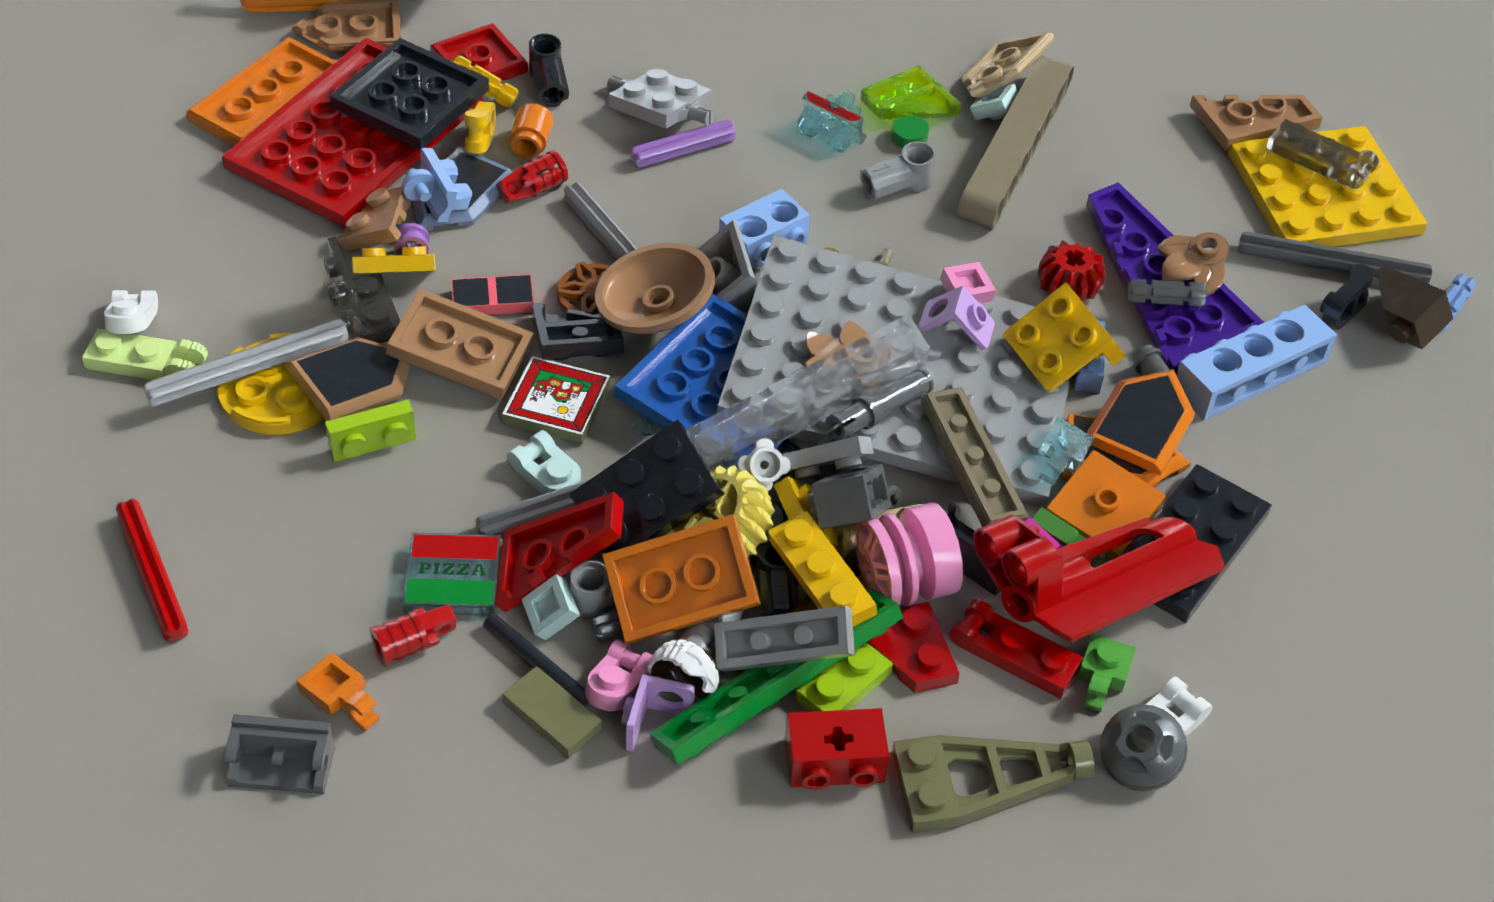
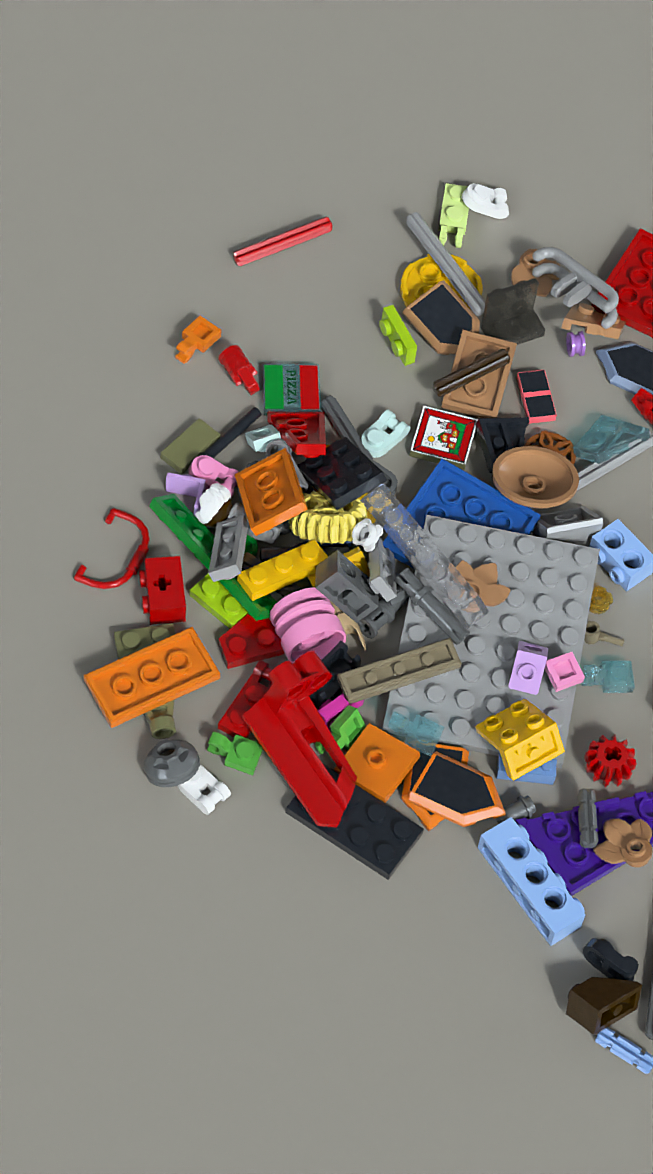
camera: 85 degrees right, 10 degrees up
(272, 275) = (524, 272): none -> medium nougat plate
(279, 754) = (151, 314): dark grey hinge -> none
(326, 207) = (577, 284): none -> light grey piece
(376, 261) = (553, 336): yellow plate -> none
(436, 186) = (636, 345): light blue hips -> none
(465, 342) = (471, 372): none -> dark brown axle
(578, 224) = (607, 438): none -> clear light blue wing
(769, 792) = (135, 562): none -> red piece
(939, 255) = (612, 675): none -> clear light blue plate
(1002, 767) = (151, 677): none -> orange tile

